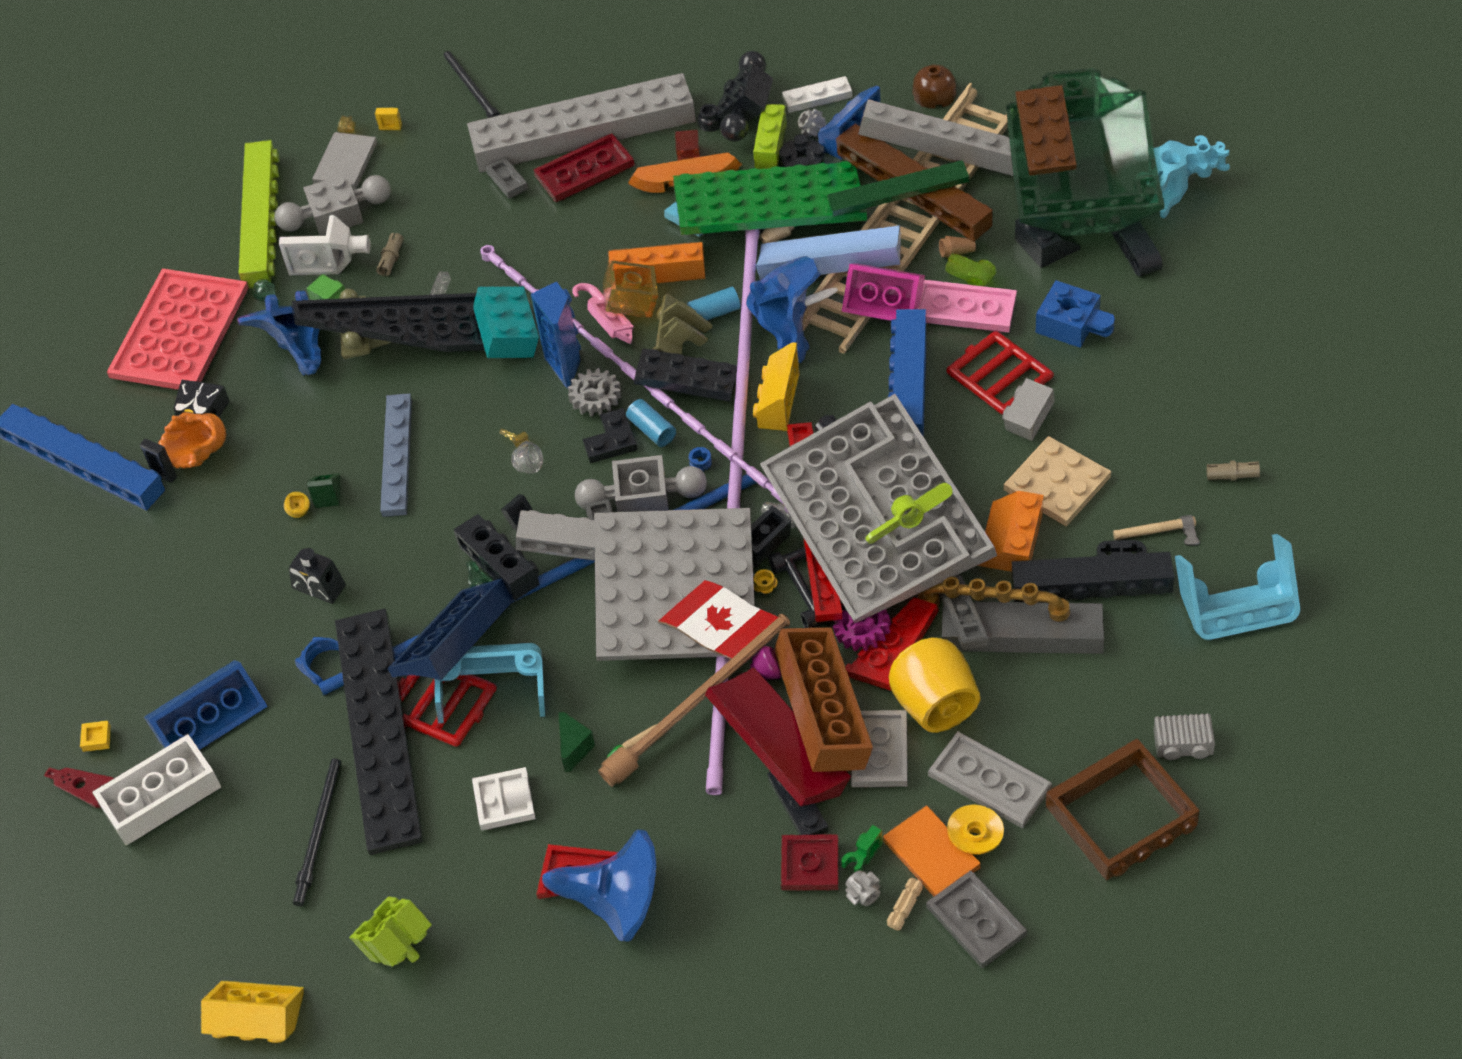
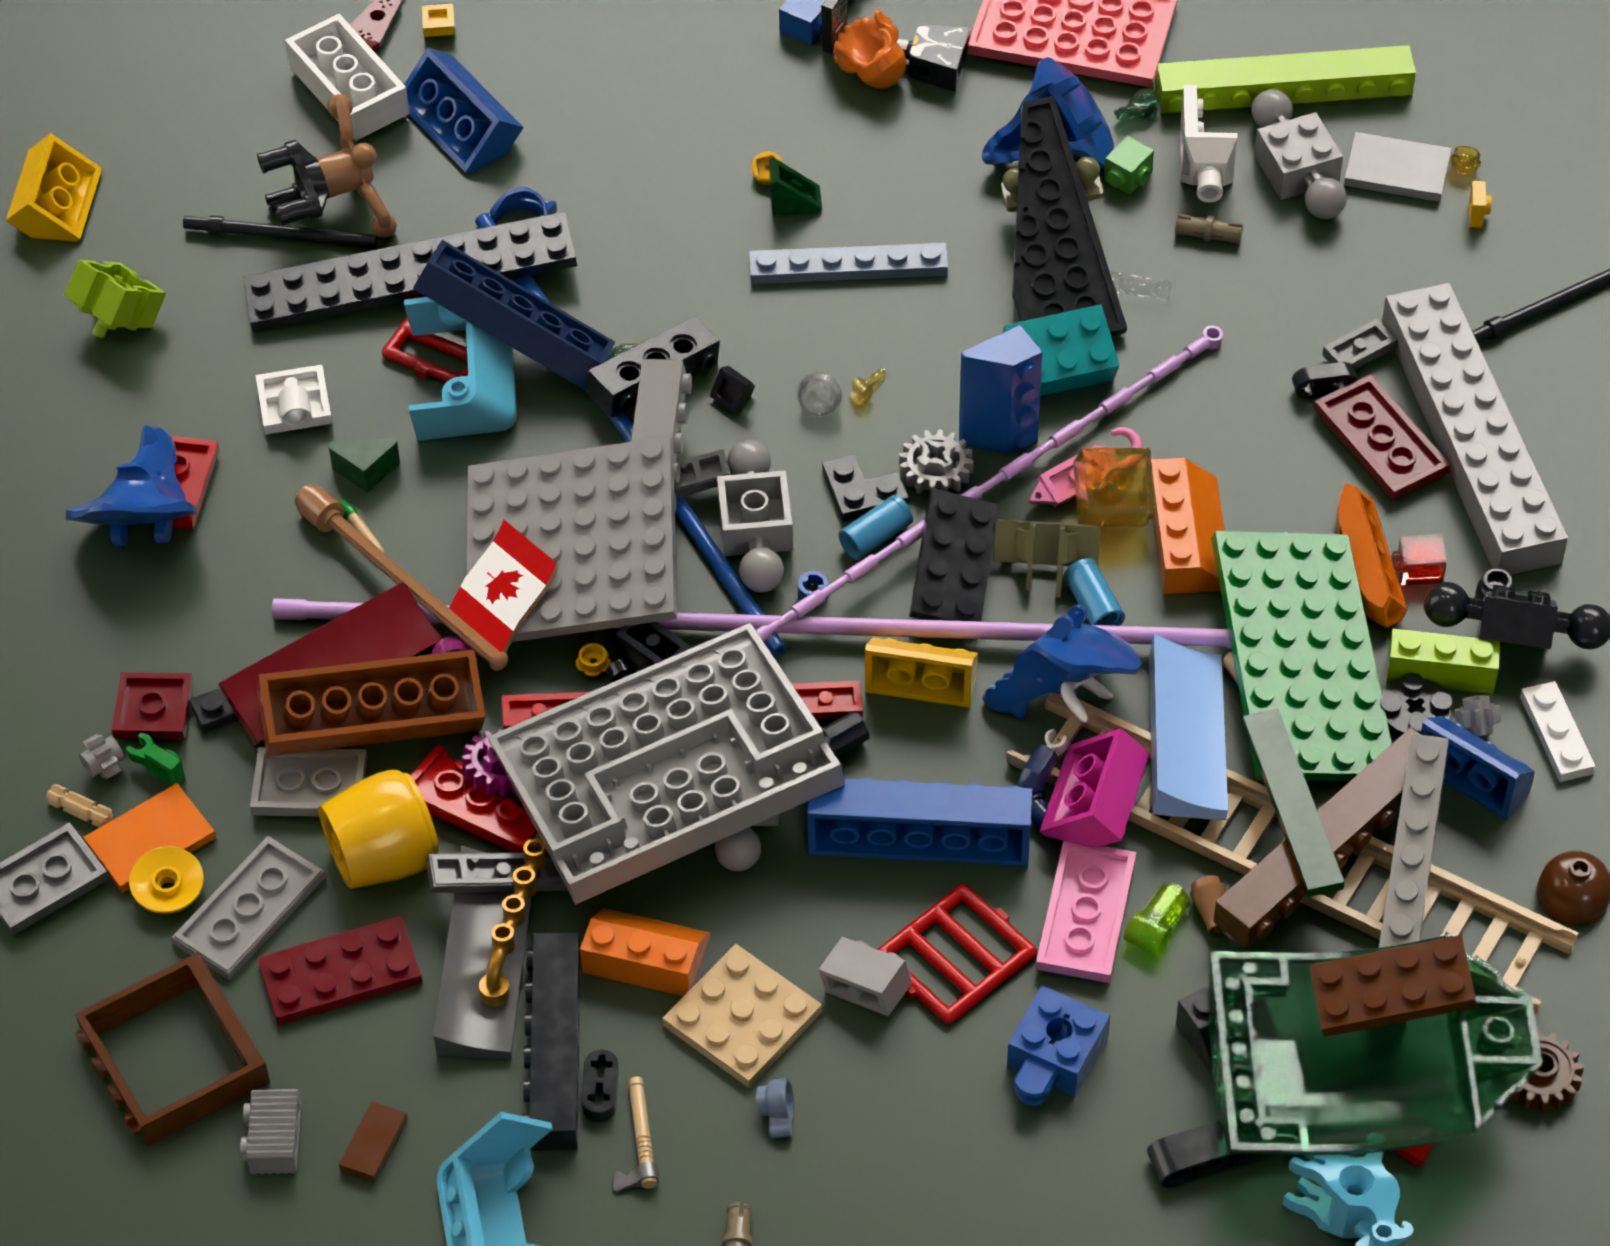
camera: 85 degrees right, 0 degrees up
(279, 788) = (326, 175): none -> wheel
(316, 576) = (641, 190): black torso -> none
(534, 193) = (1323, 379): none -> black beam
(865, 325) = (1037, 772): none -> dark blue arm
(915, 516) = (628, 778): lime piece -> none
(1040, 715) = (339, 970): none -> dark red plate
(1127, 453) = (777, 1102): none -> sand blue piece
(1180, 680) = (373, 1141): none -> reddish brown tile

